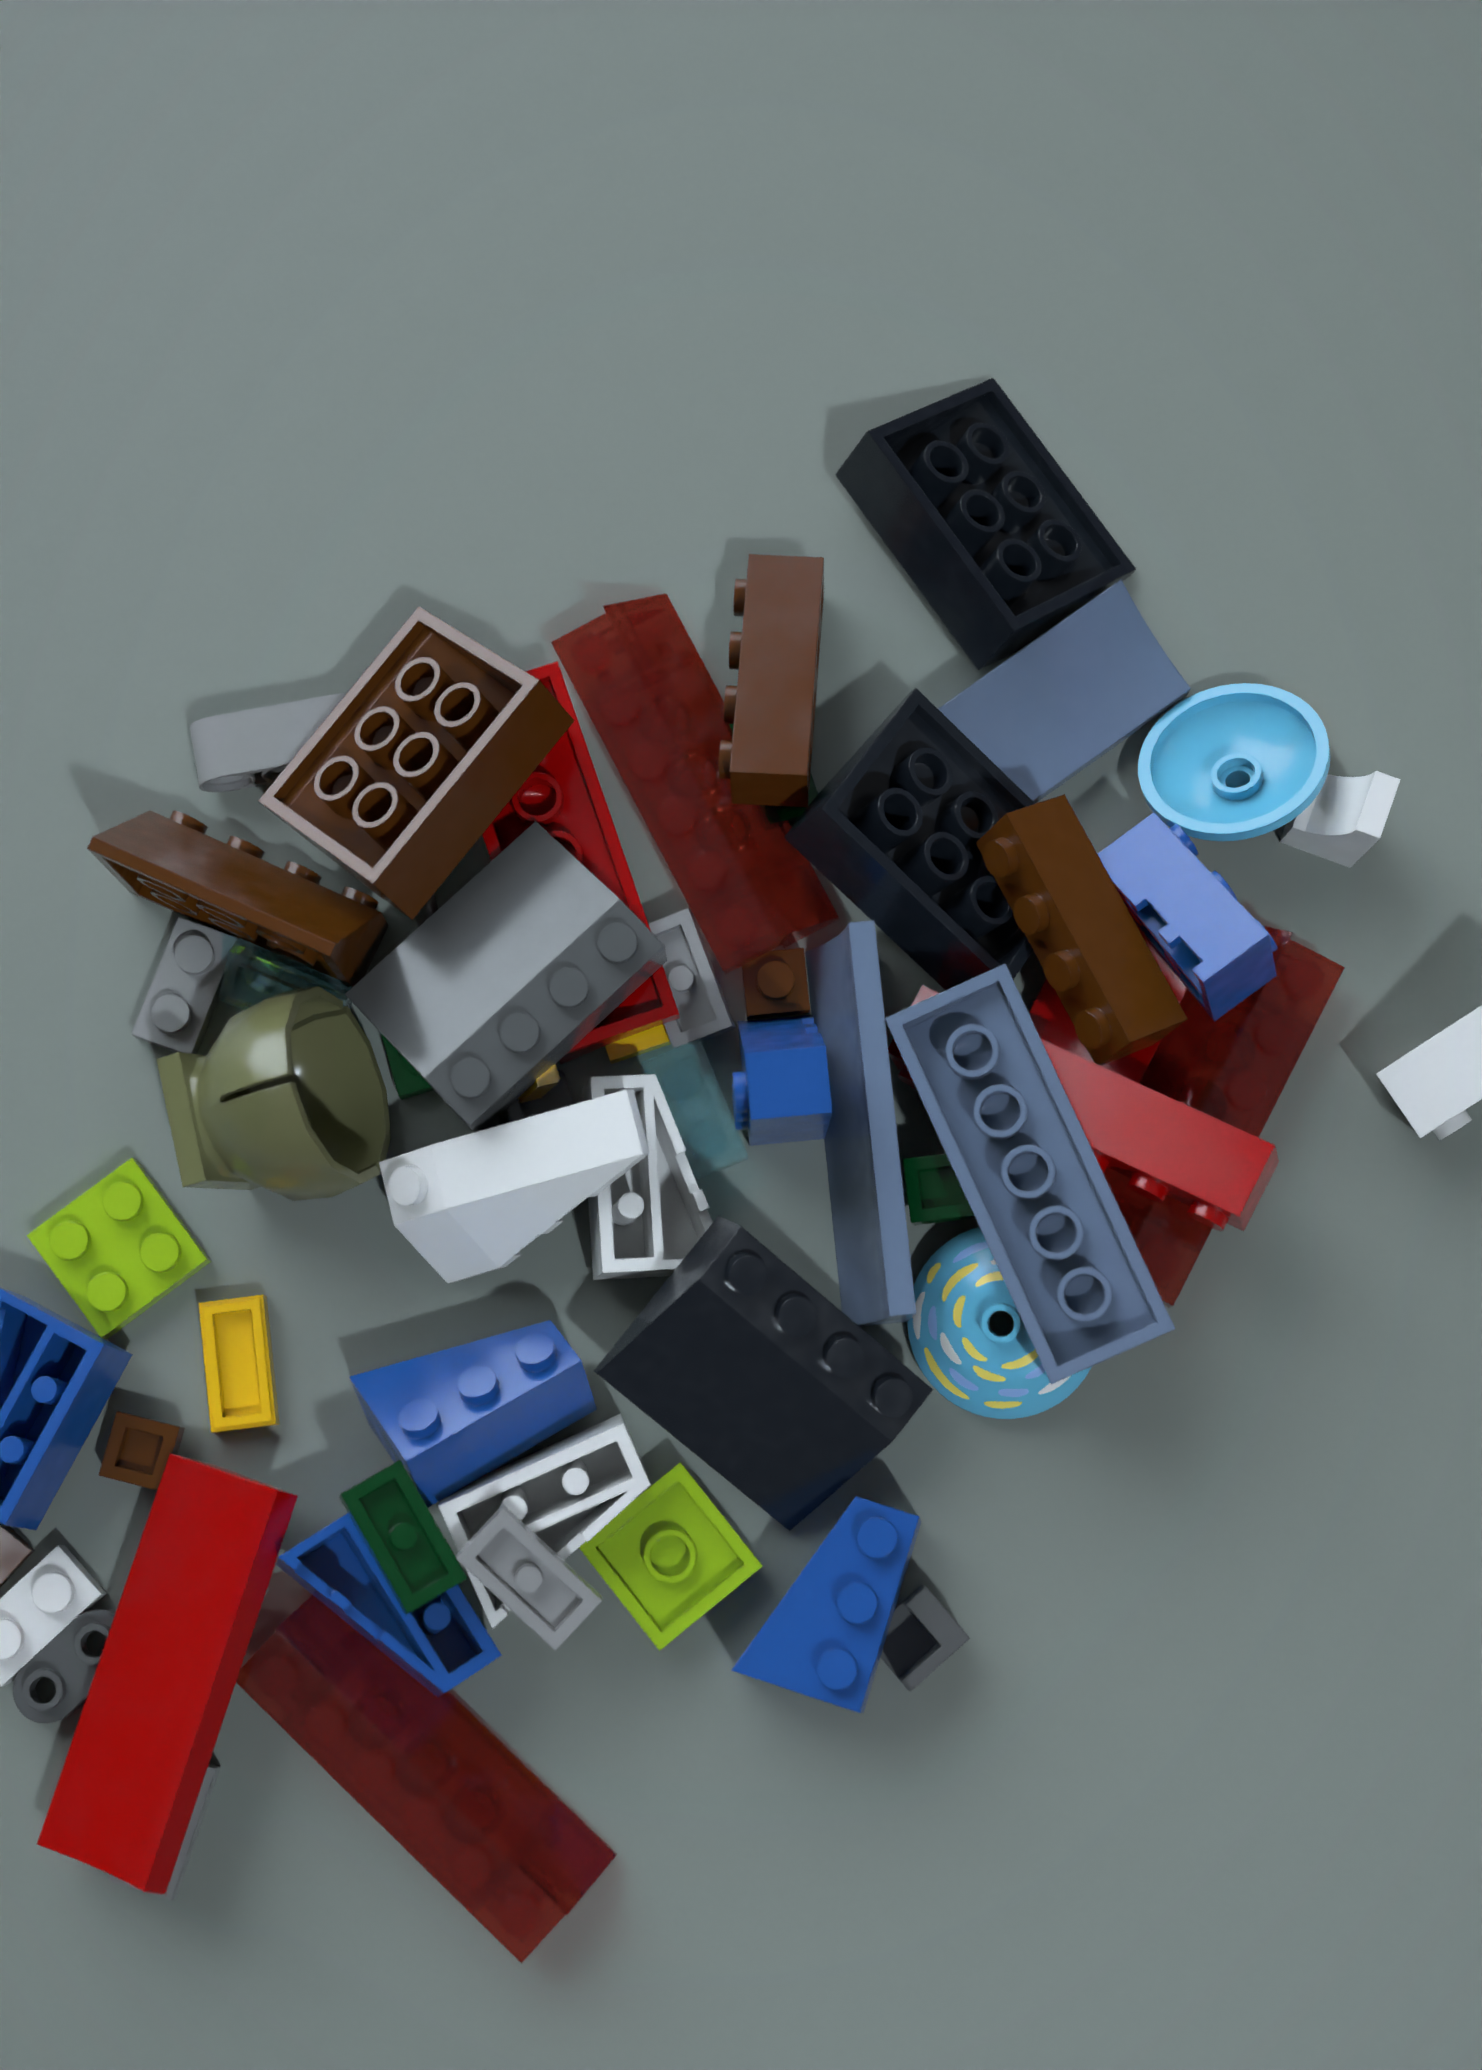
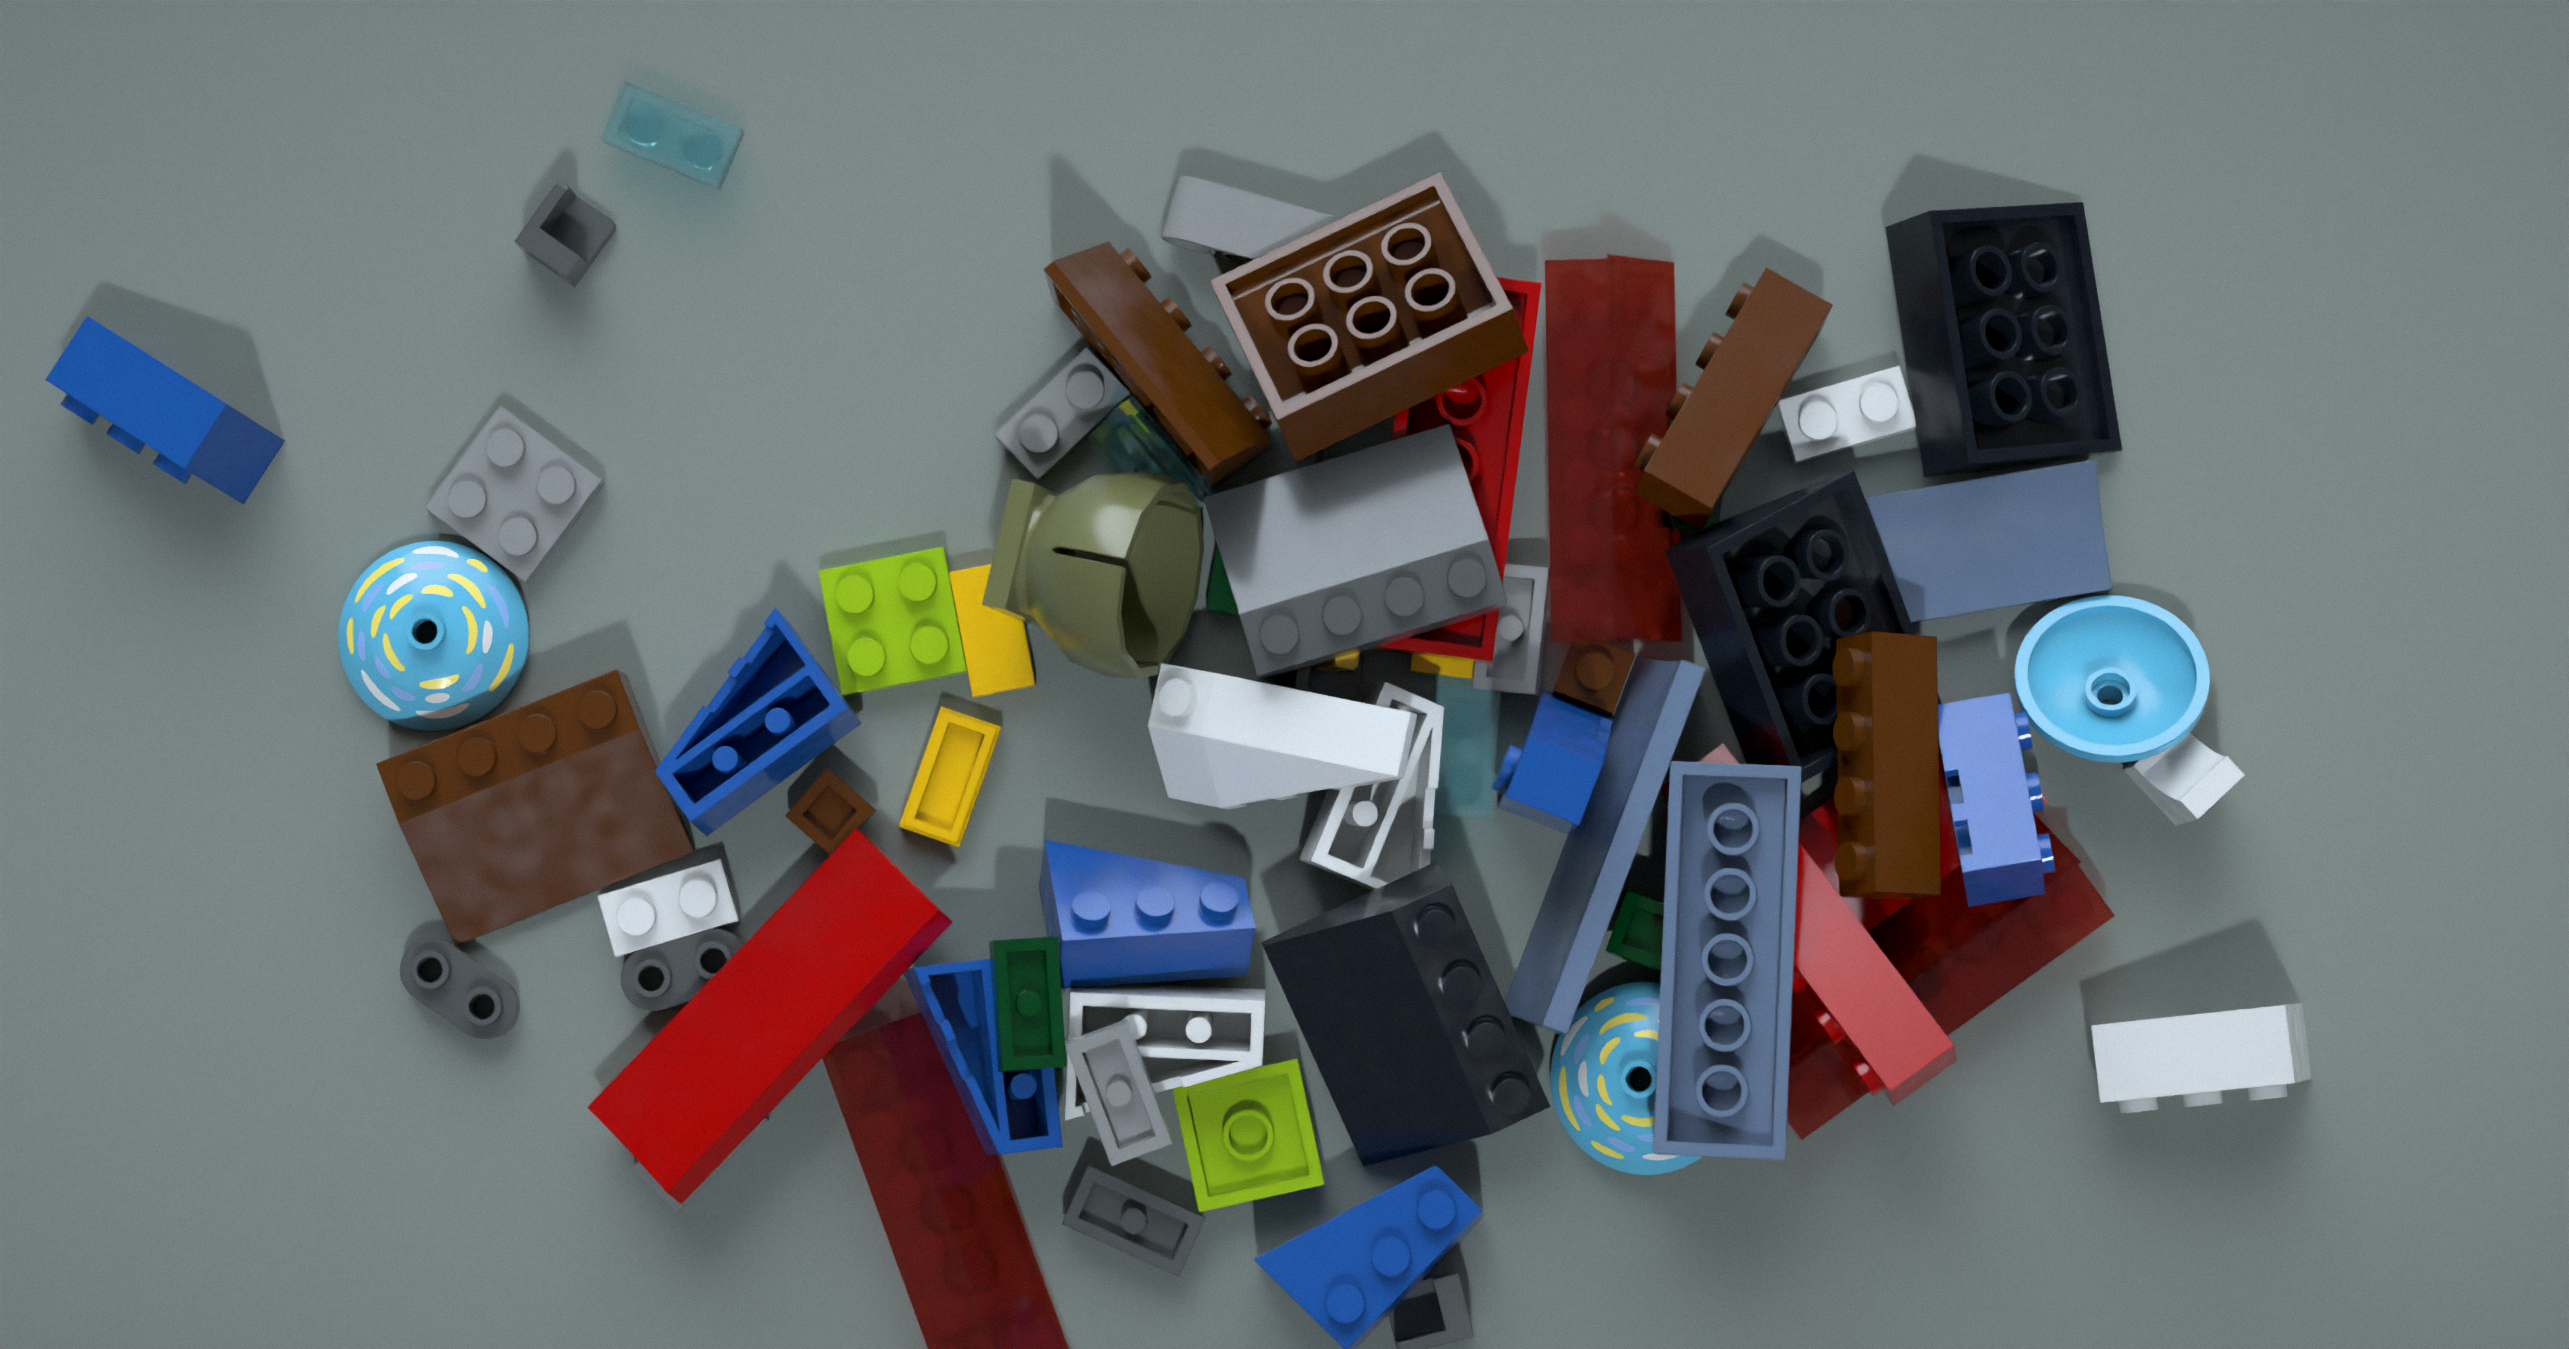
camera: 30 degrees right, 5 degrees up
(217, 1220) = (992, 641): none -> yellow tile
(603, 1689) = (1133, 1220): none -> dark grey plate
(883, 653) = (1846, 414): none -> white plate

